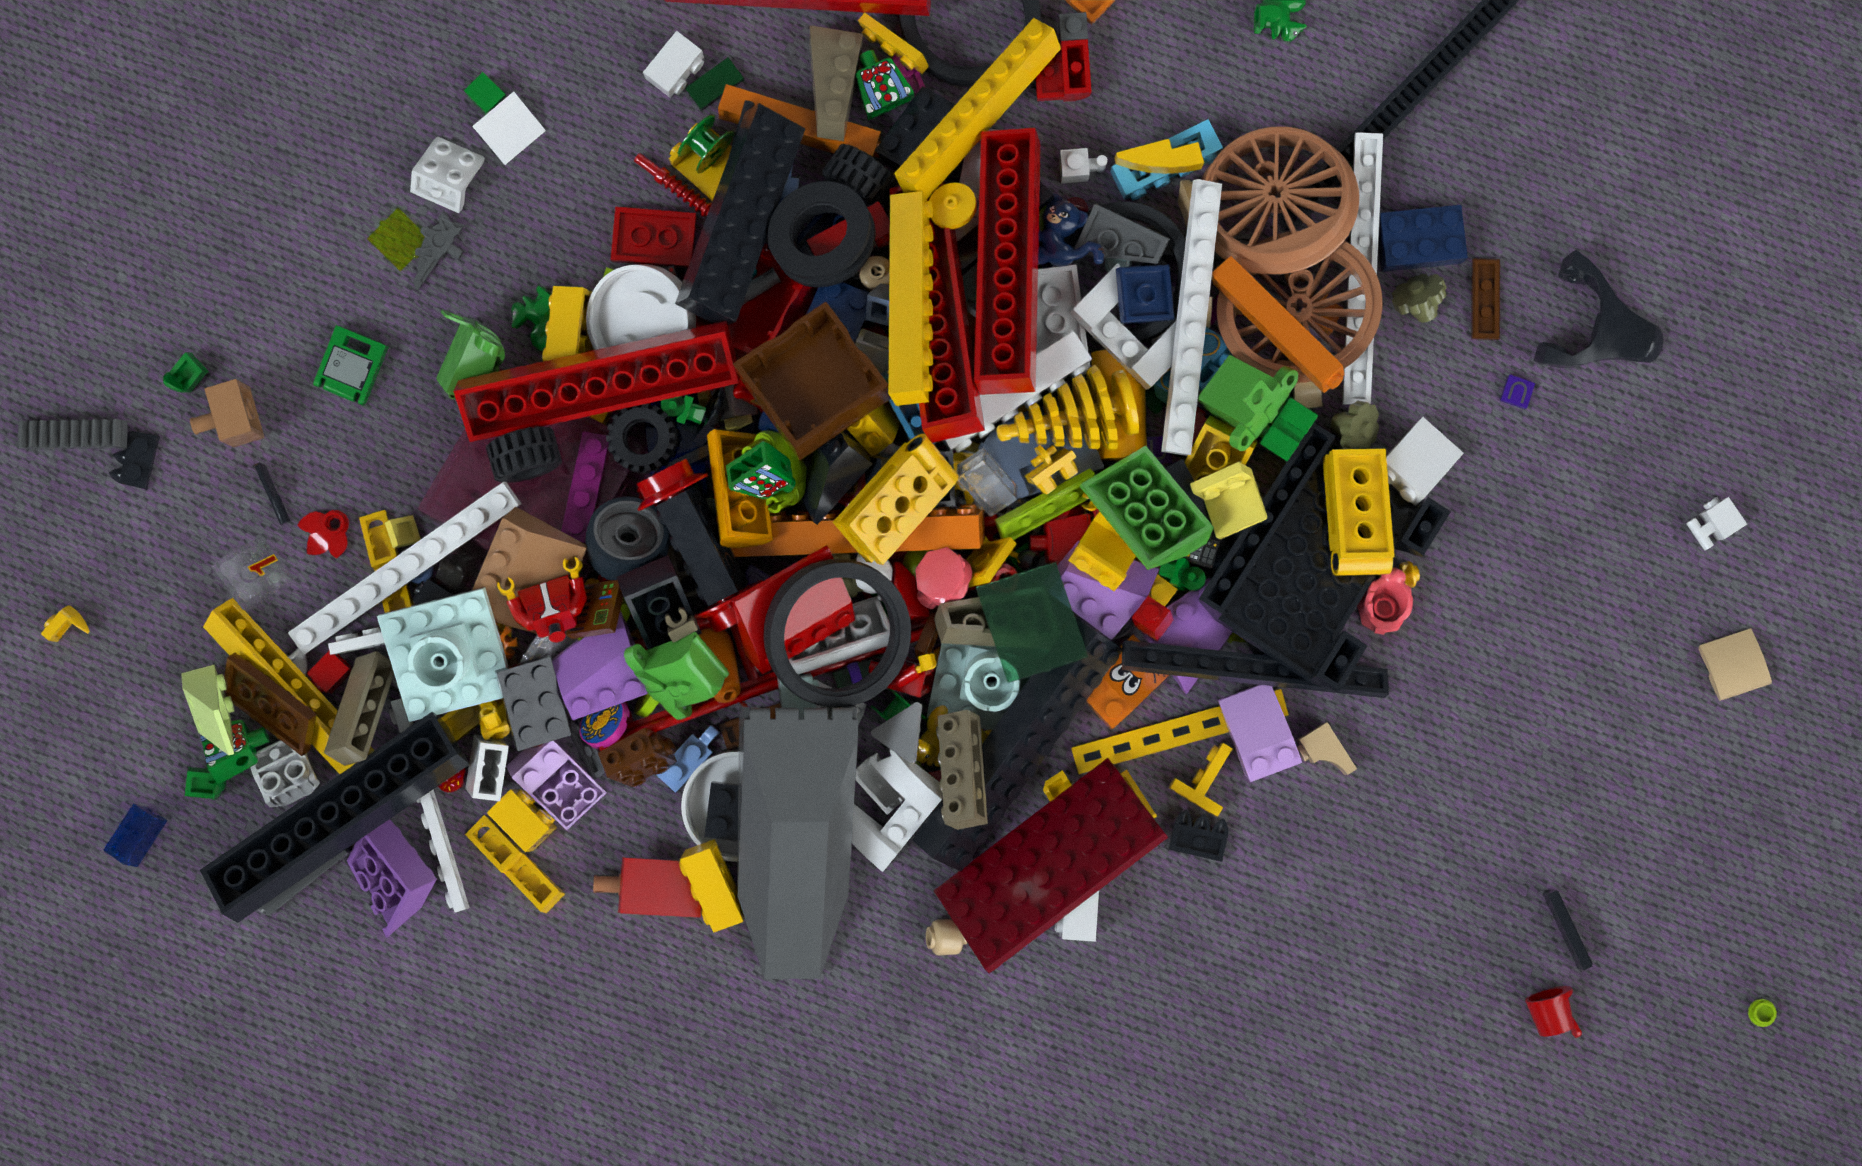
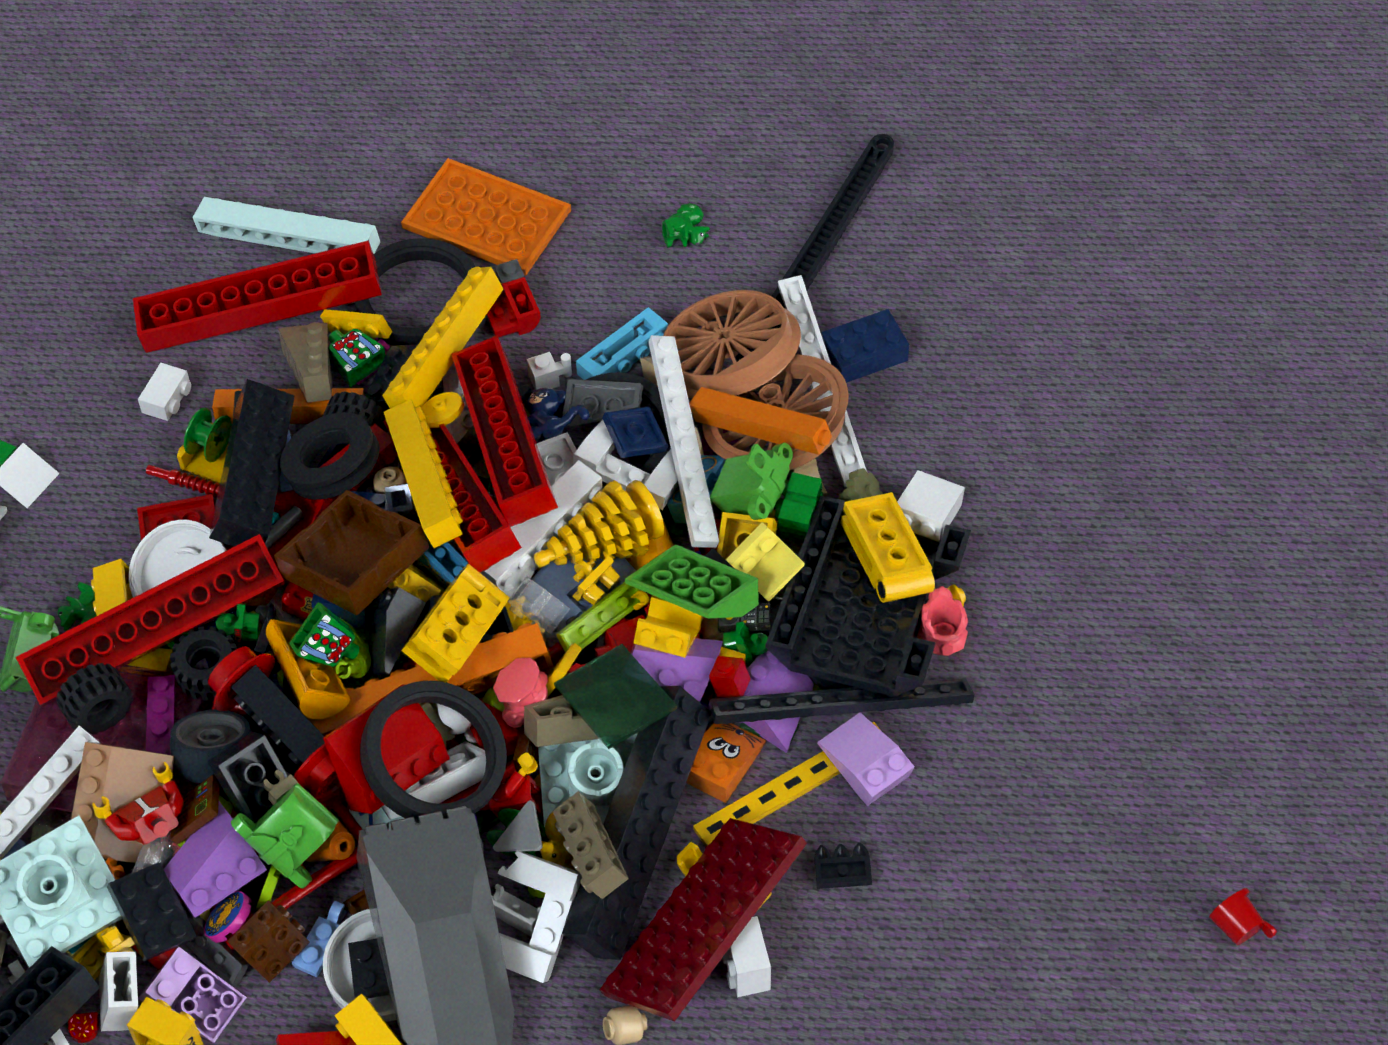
camera: 15 degrees left, 30 degrees down
(712, 84) = (202, 397): dark green tile -> none
(1161, 158) = (615, 339): yellow slope -> none
(1203, 780) = (825, 828): yellow bracket -> none
(1324, 745) = (933, 756): tan arch -> none
(1420, 296) = (881, 387): olive plant -> none
(1485, 299) = (939, 379): reddish brown tile -> none
(1517, 392) = (994, 438): dark purple tile -> none
(1567, 929) = (1223, 844): black tile -> none
(1616, 331) = (1059, 370): black animal -> none
(1720, 520) = (1211, 483): white brick -> none
(1735, 664) = (1278, 588): tan slope -> none

